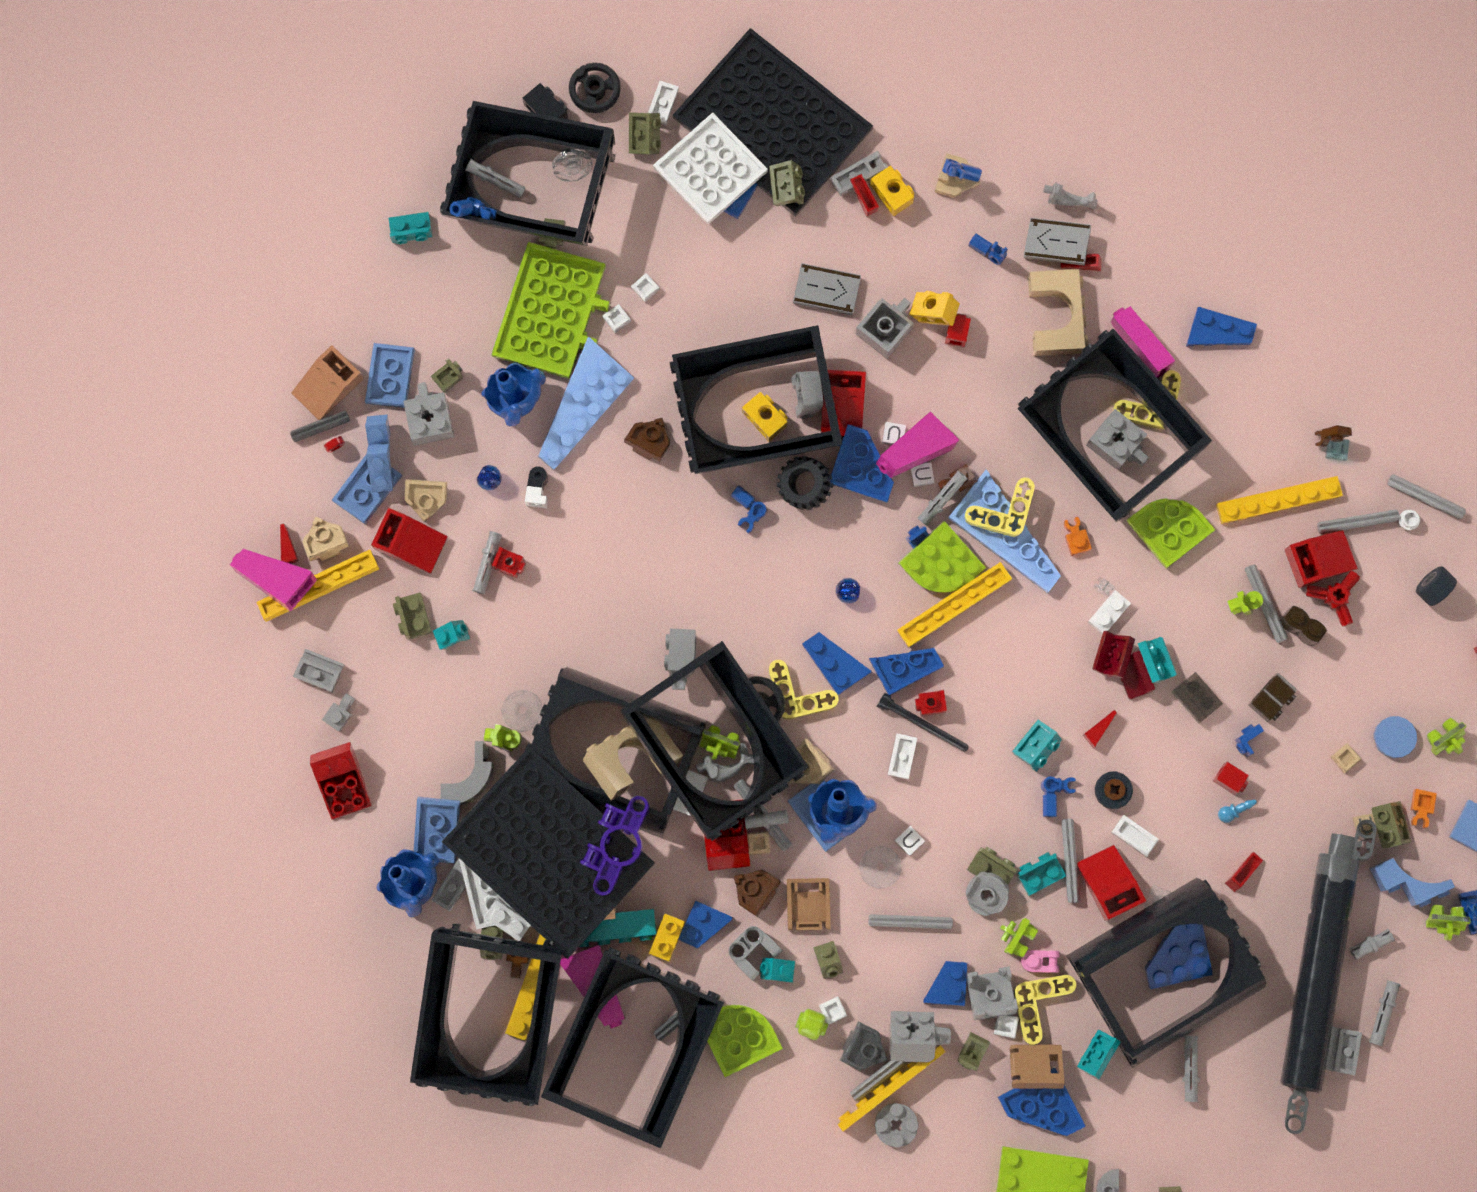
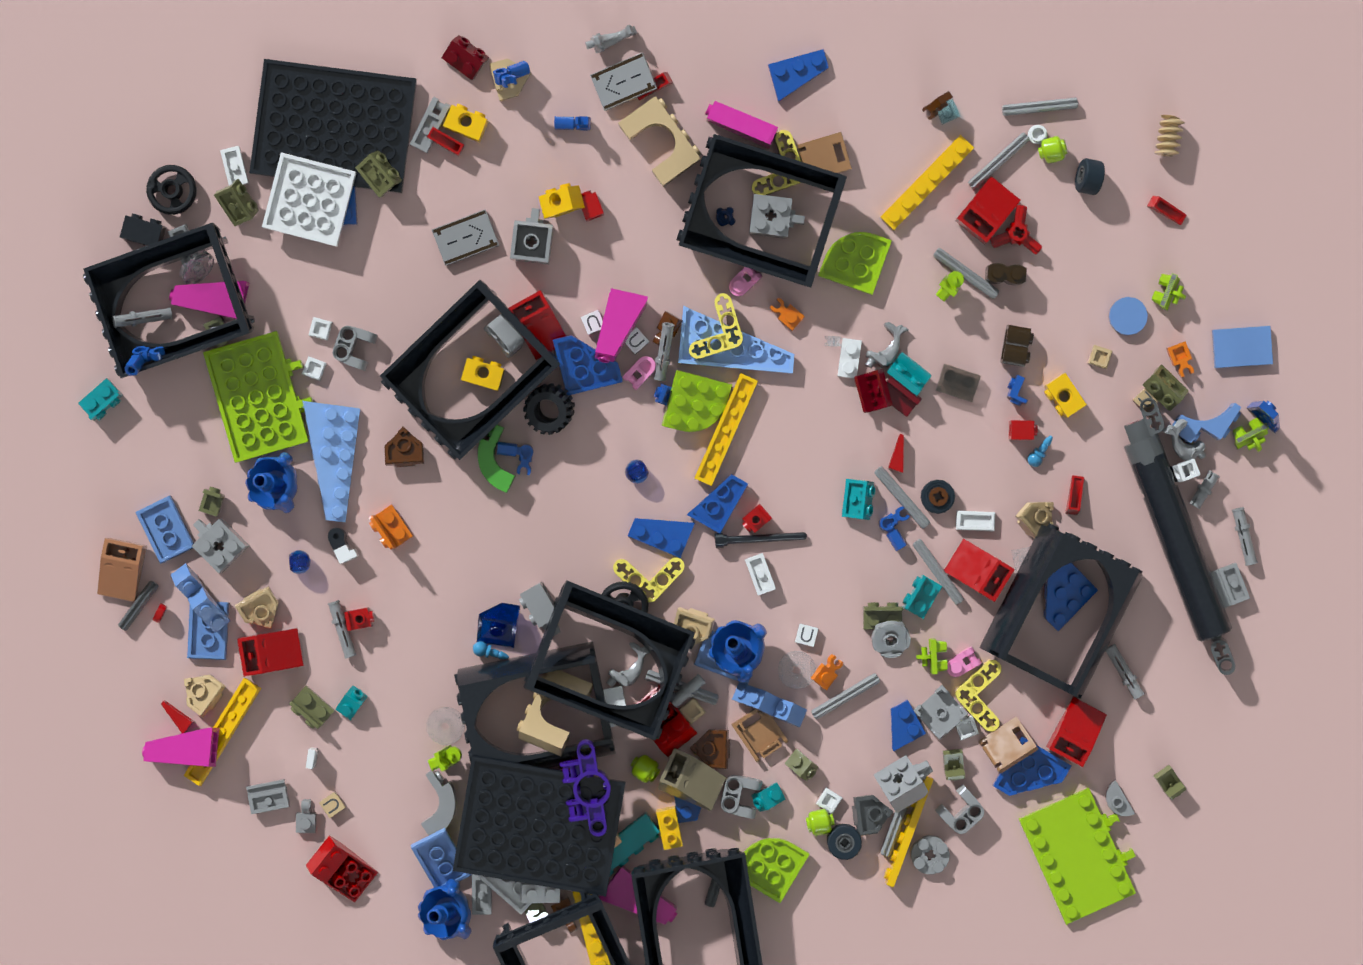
camera: 35 degrees left, 10 degrees up
(372, 716) = (332, 804): none -> tan tile
(382, 660) = (311, 758): none -> white tile
(563, 197) = (207, 297): none -> dark pink slope
(592, 499) = (391, 527): none -> orange bracket
(601, 661) = (480, 649): none -> dark azure bar
(631, 649) = (499, 625): none -> clear blue slope
(662, 317) = (350, 344): none -> light grey piece
(680, 867) = (645, 768): none -> lime head
(716, 501) = (489, 467): none -> bright green arch
(716, 904) = (691, 780): none -> dark tan slope
(719, 744) = (614, 656): lime hips -> none
(820, 1052) = (838, 840): none -> black wheel
(834, 879) = (769, 704): none -> medium blue arch
(904, 888) = (826, 674): none -> orange plate
(916, 503) = (645, 367): none -> bright pink plate
(928, 134) = (465, 57): none -> dark red bracket
(954, 1107) = (964, 813): none -> light grey piece
(1048, 484) = (739, 286): none -> bright pink plate
(1069, 415) = (720, 217): none -> dark blue plate
(1079, 770) = (902, 497): none -> light grey axle
(1098, 1054) = (1049, 706): teal bracket -> none
(1110, 1097) = (1077, 731): none -> red slope
(1147, 632) = (886, 357): none -> light grey animal
(1192, 865) = (1034, 515): none -> tan plate
(1202, 411) = (822, 153): none -> medium nougat container
(1297, 761) = (1074, 402): none -> yellow brick
(1365, 911) = (1185, 470): none -> white leg
(1374, 895) = (1184, 451): none -> light grey animal
(1416, 541) = (1053, 149): none -> lime head

